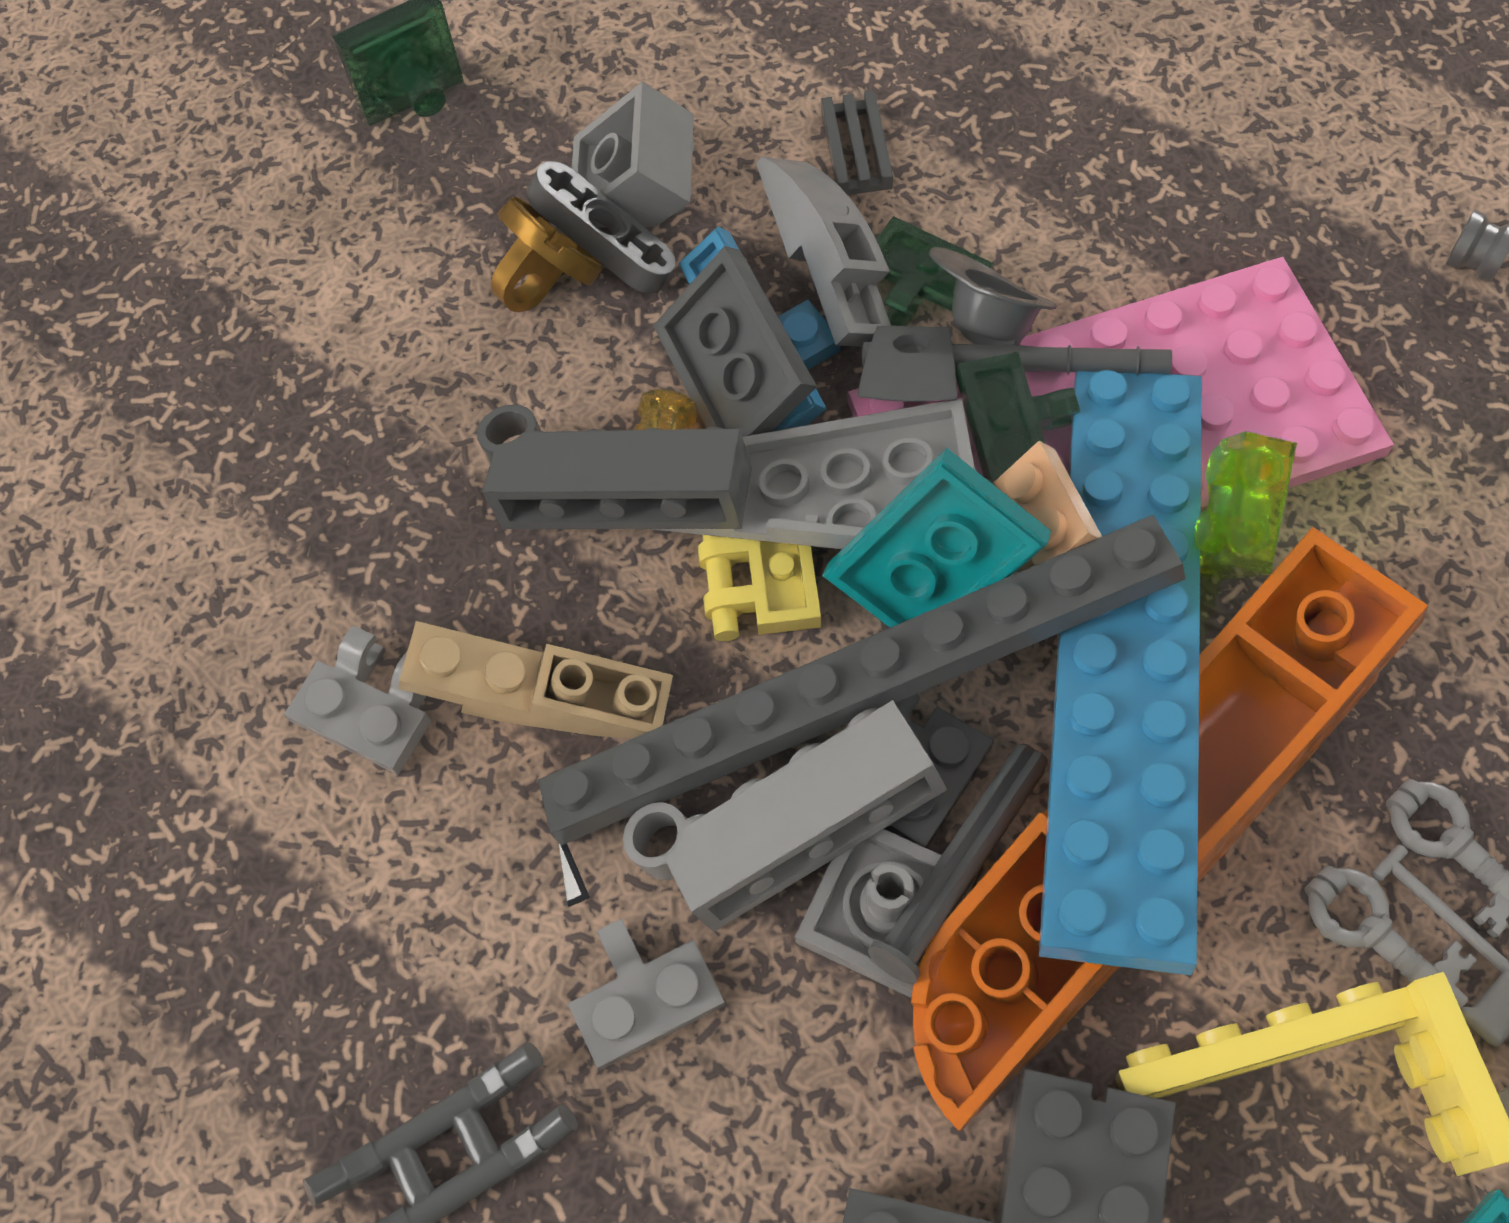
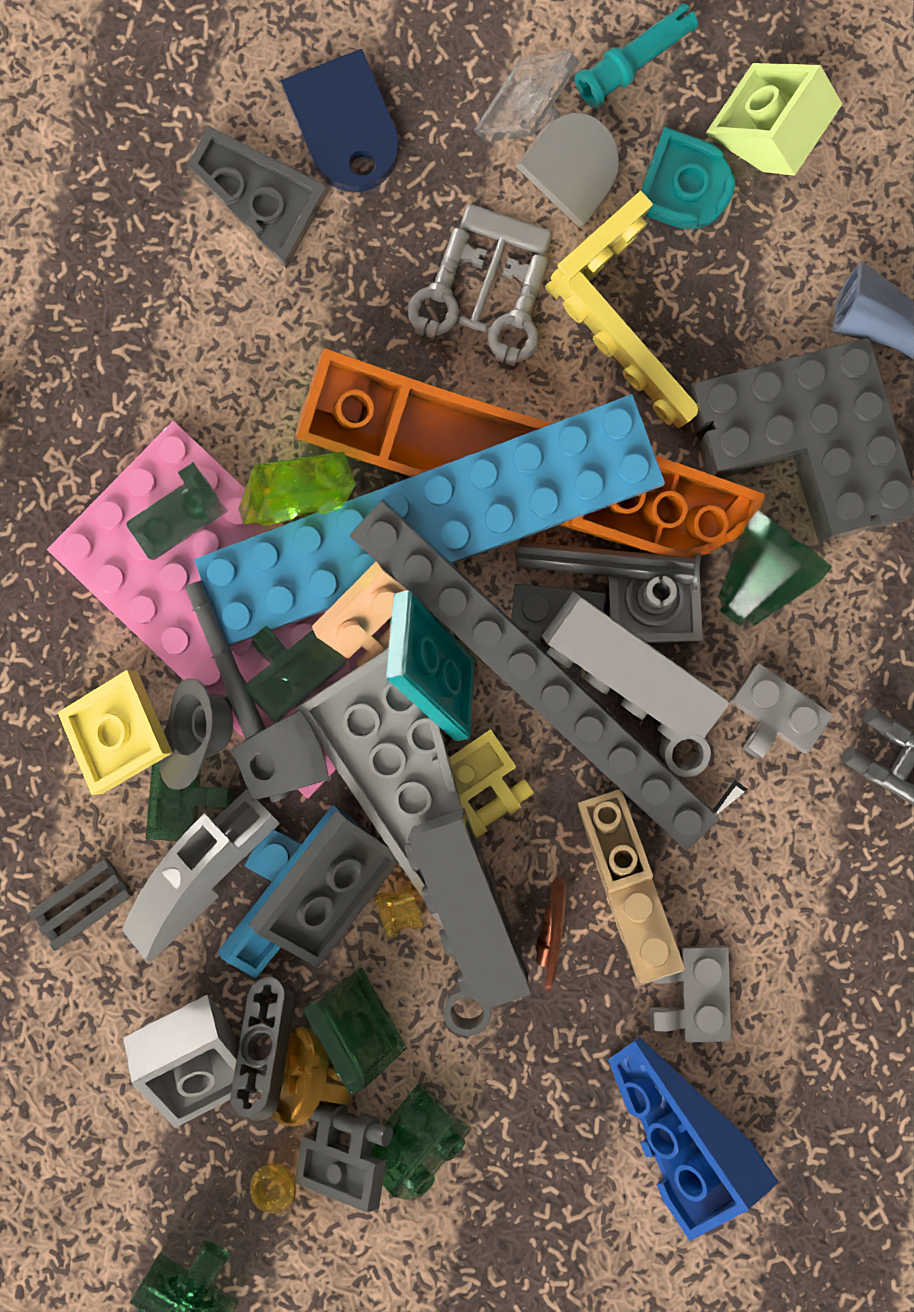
camera: 125 degrees left, 20 degrees up
(162, 614) = (703, 1158): none -> blue wedge
(404, 332) = (421, 1143): none -> clear green bracket
(440, 247) = (341, 1170): none -> dark grey plate
(454, 187) = (272, 1188): none -> clear yellow plate
(546, 564) = (550, 938): none -> copper piece
(561, 313) = (355, 1030): none -> clear green plate
(848, 1078) = (767, 571): none -> clear green cone
(1030, 231) = (114, 732): none -> light yellow plate
(1266, 388) = (177, 514): none -> clear green bracket

